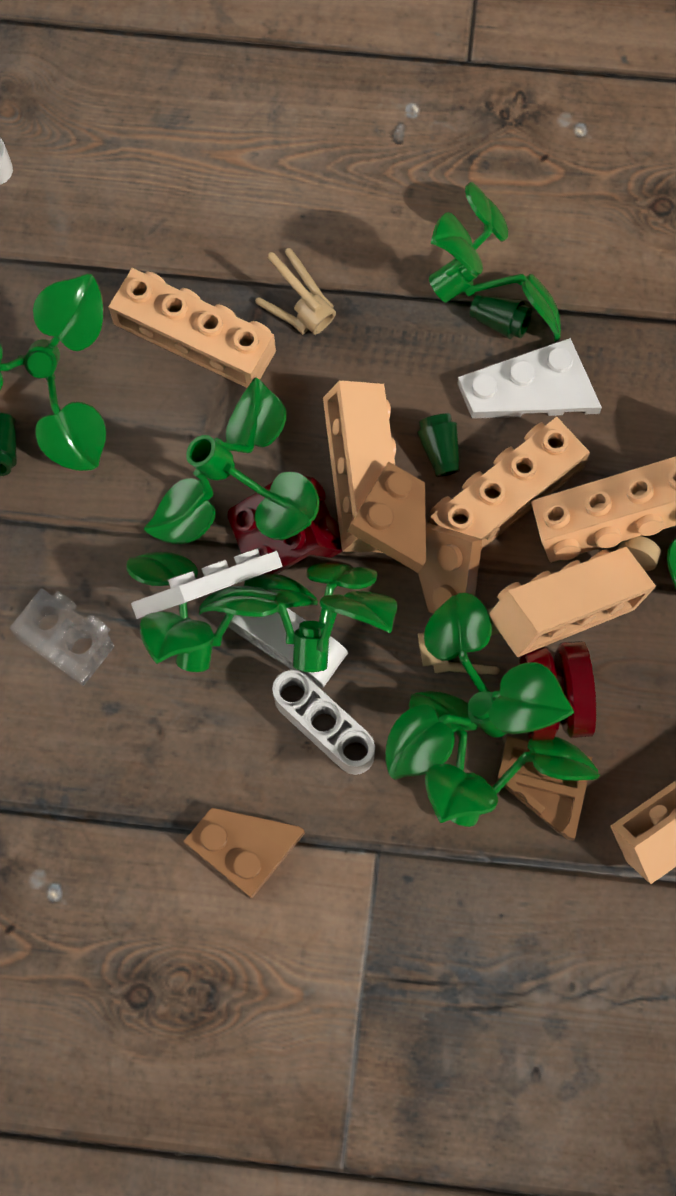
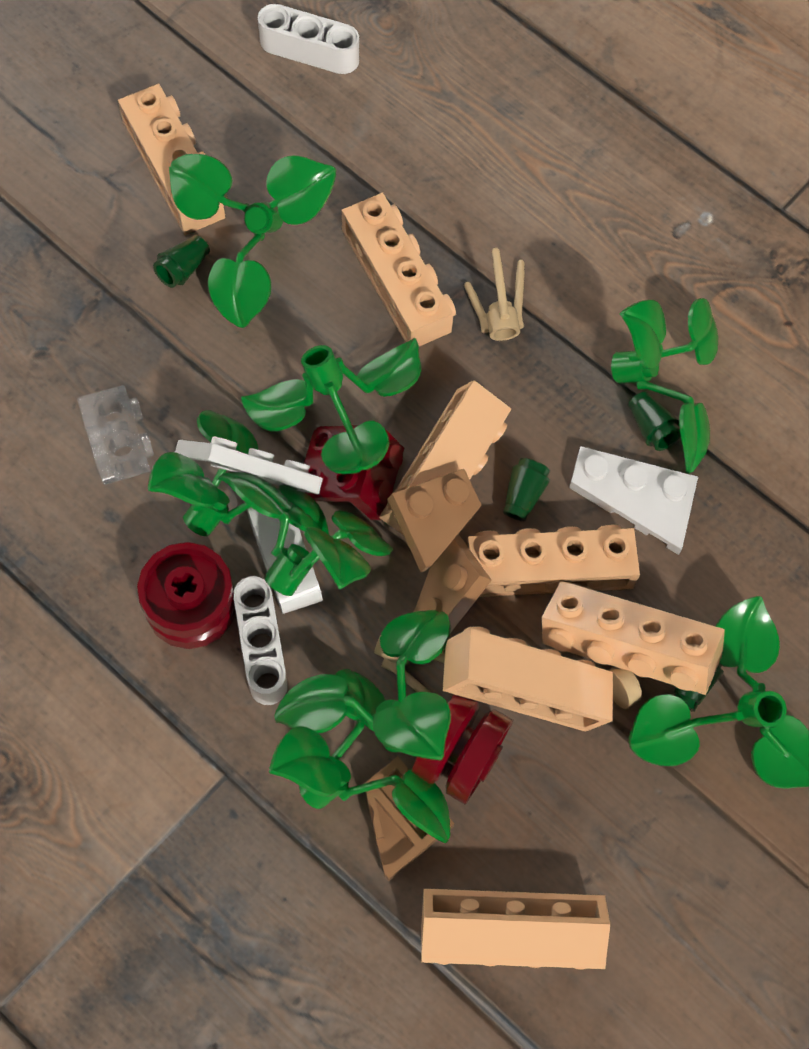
camera: 30 degrees right, 5 degrees down
(231, 703) = (187, 595): none -> dark red wheel
(243, 846) = (124, 693): medium nougat wing -> none

